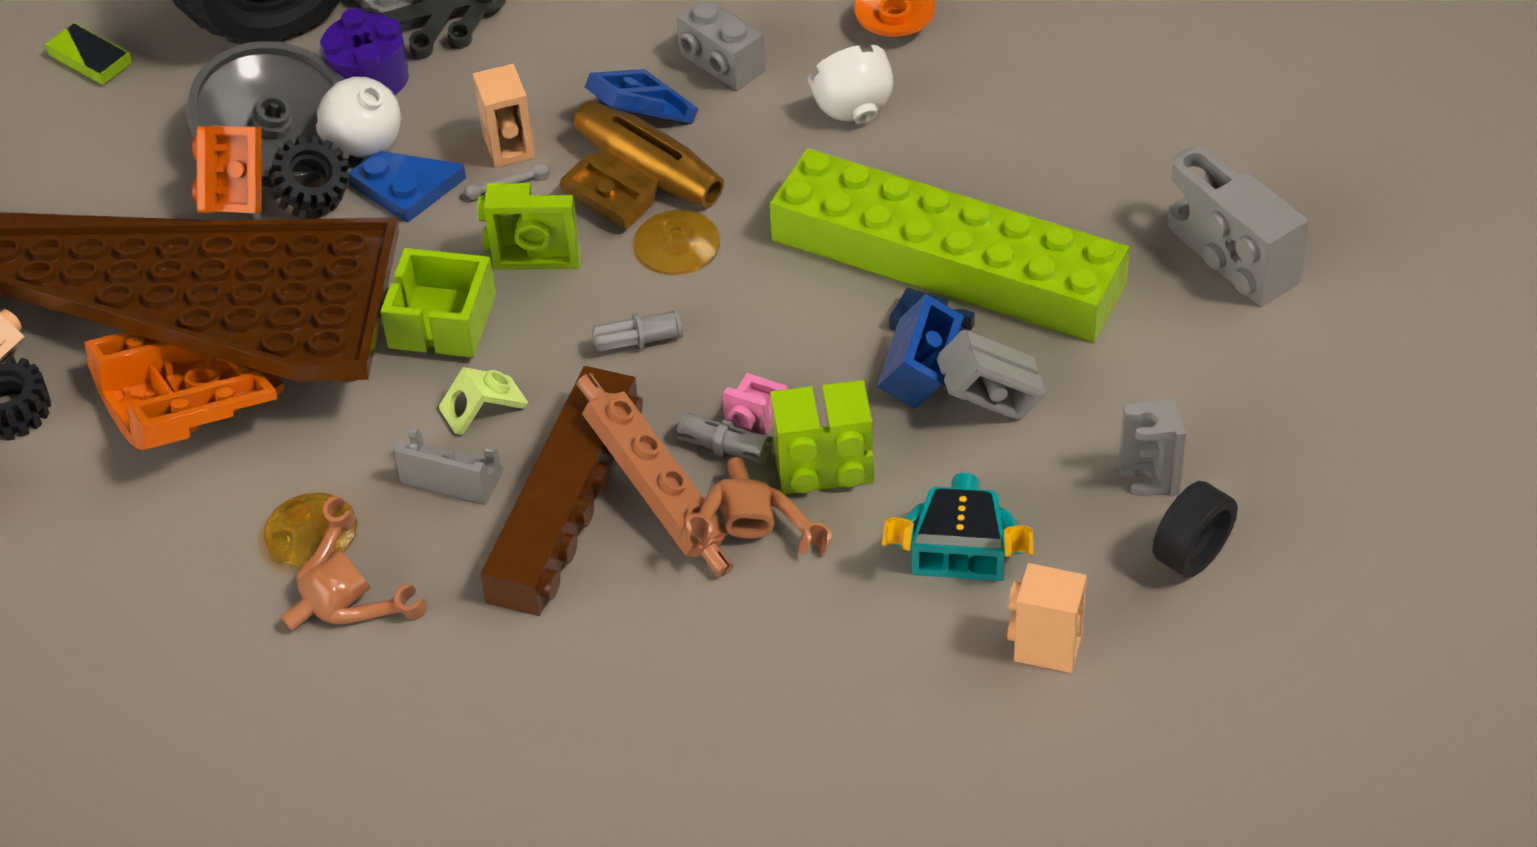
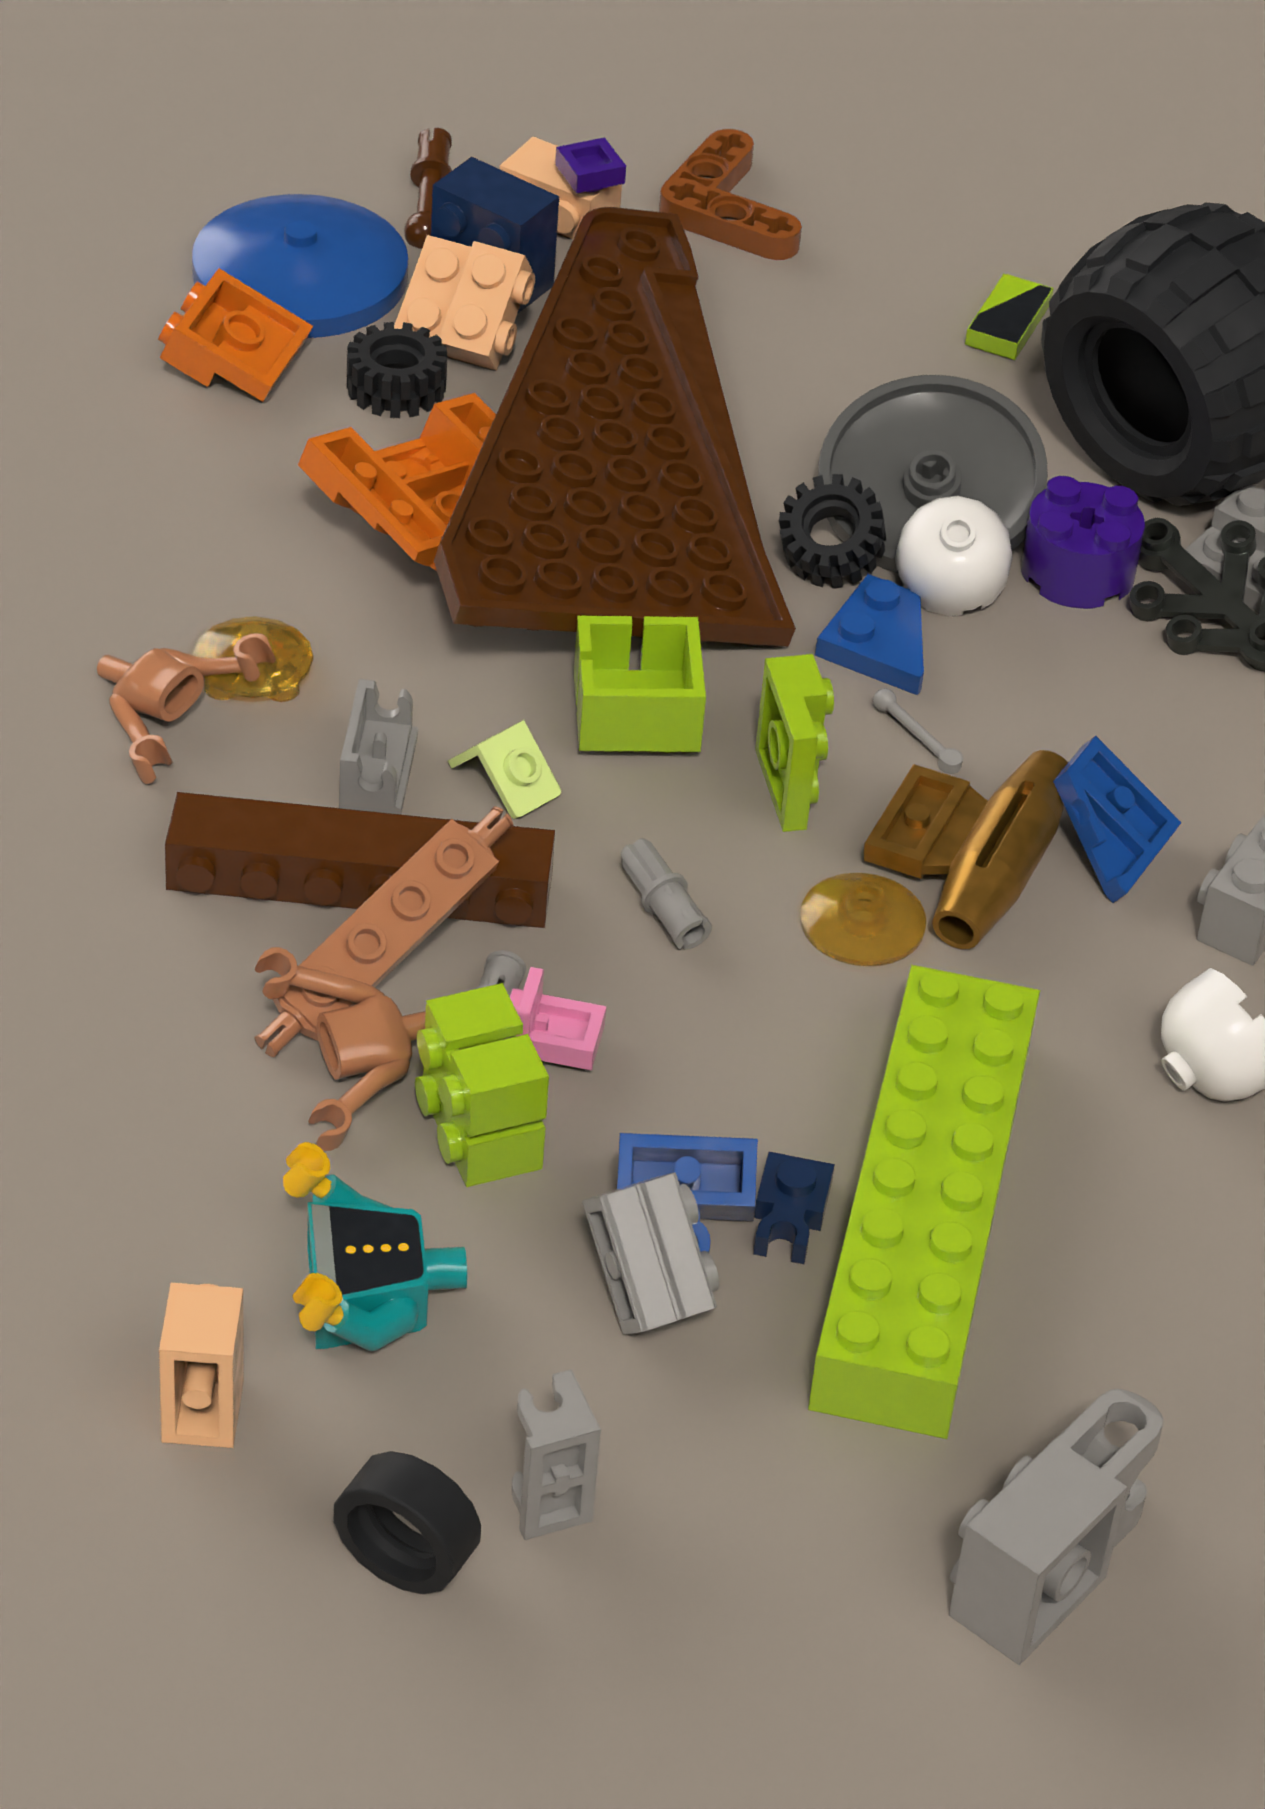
camera: 70 degrees right, 5 degrees down
(228, 169) = (797, 441): orange bracket -> none
(504, 115) = (1001, 680): light nougat brick -> none

